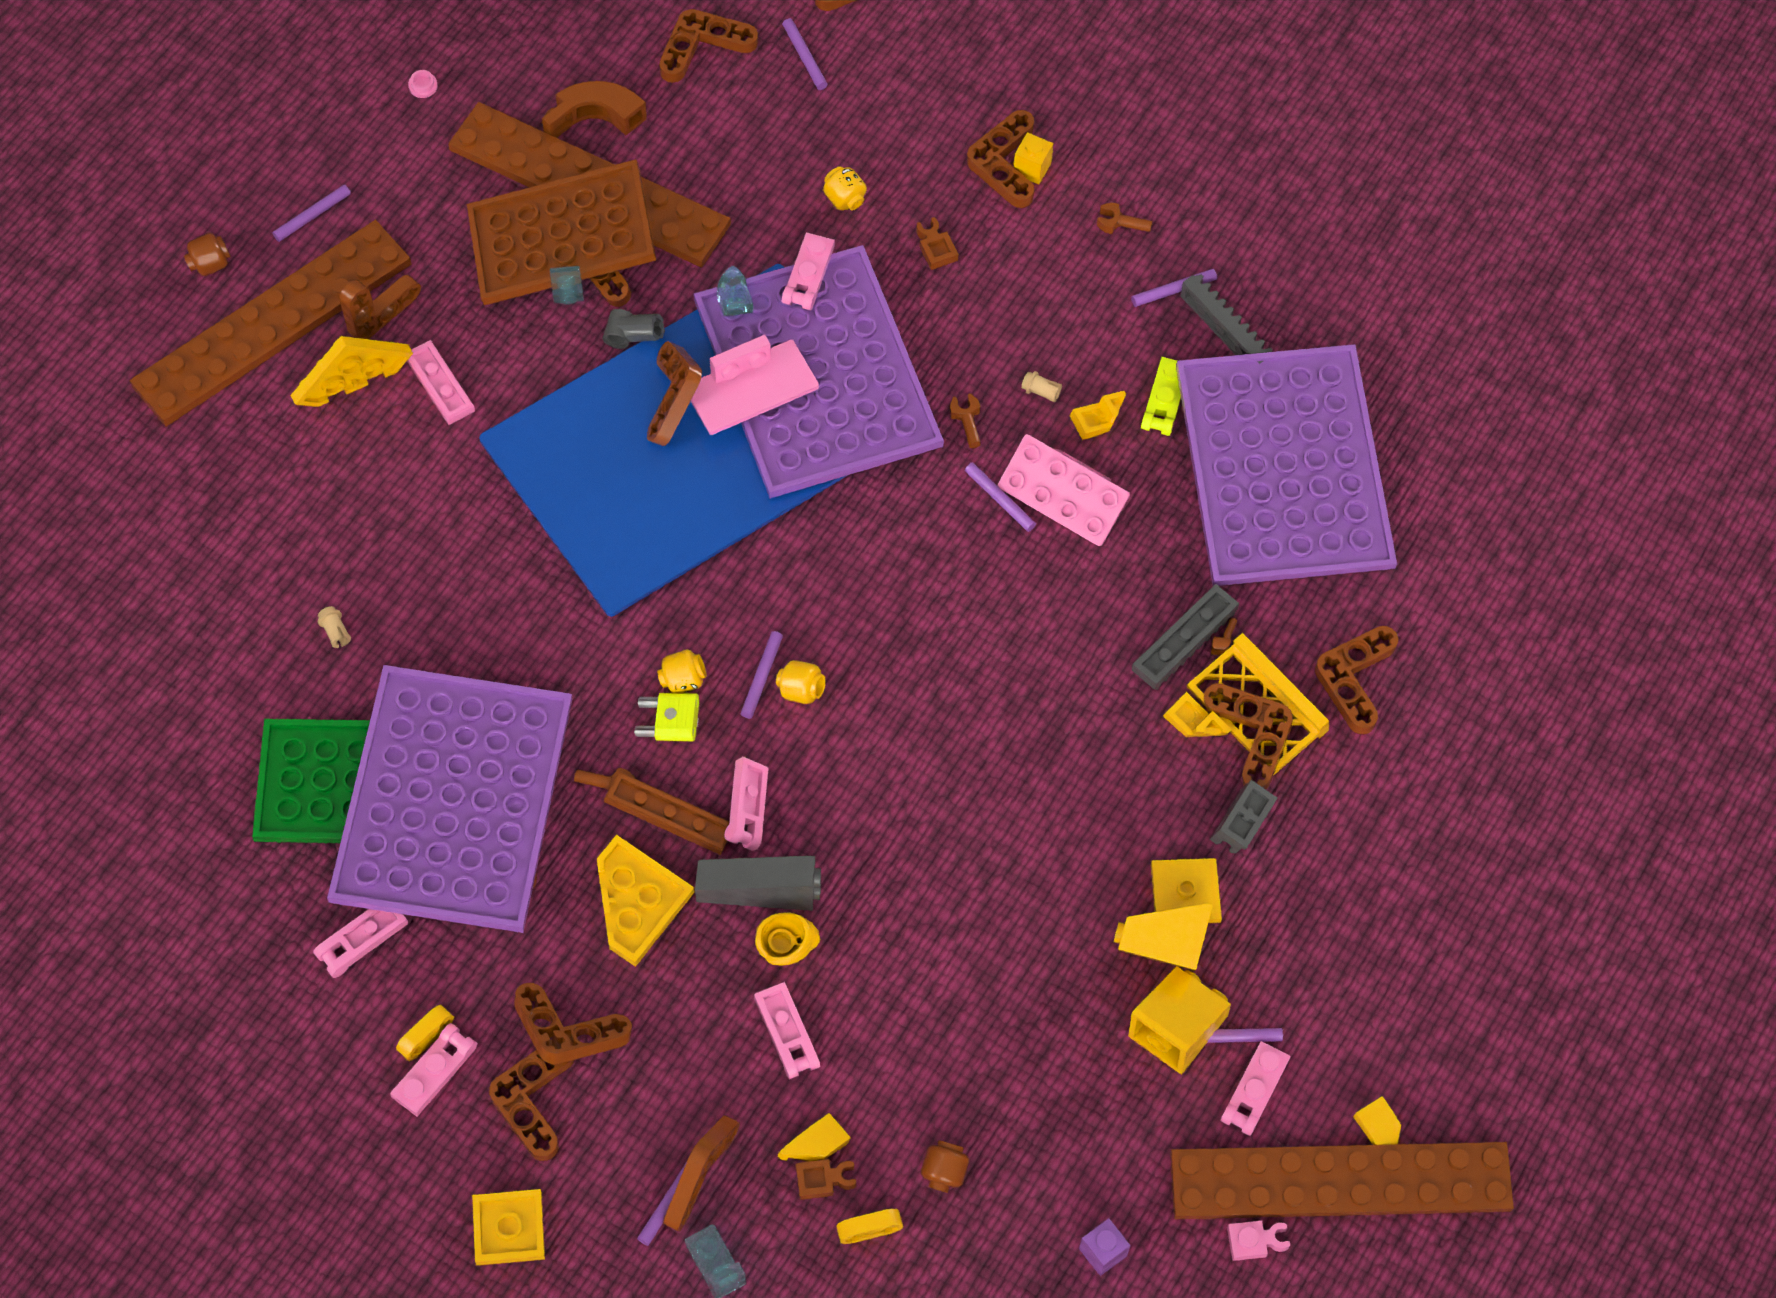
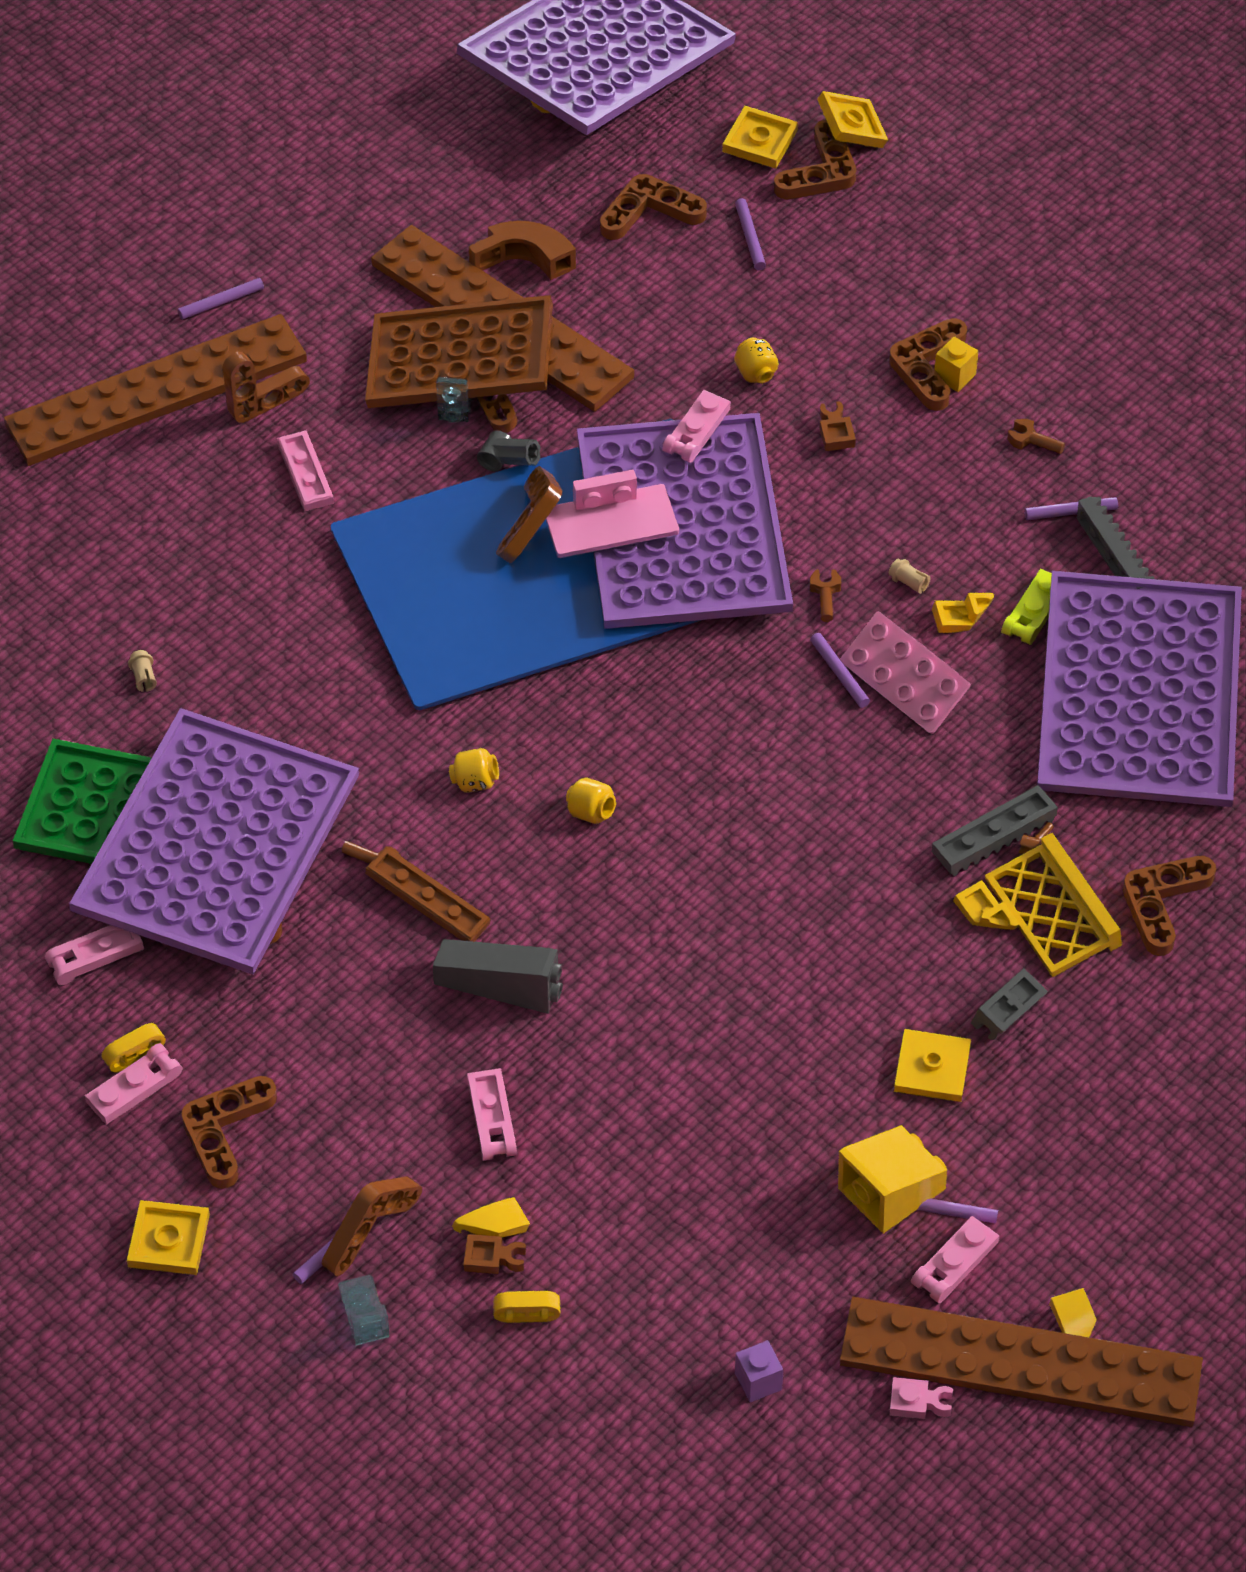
camera: 15 degrees right, 10 degrees down
(207, 254) = (108, 316): dark orange head -> none
(349, 367) = (218, 438): yellow plate -> none
(422, 84) = (360, 200): bright pink plate -> none
(566, 1037) = (268, 1082): dark orange beam -> none
(637, 898) = (375, 967): yellow plate -> none
(674, 717) = (456, 811): neon yellow piece -> none
(733, 293) = (615, 431): clear light blue plate -> none
(747, 804) = (507, 900): bright pink plate -> none
(761, 674) = (554, 789): medium lavender bar -> none
(778, 938) = (513, 1028): yellow hair -> none
(944, 1166) = (617, 1266): dark orange head -> none
(1166, 935) = (898, 1092): yellow slope -> none
(1261, 721) = (1050, 920): dark orange beam -> none

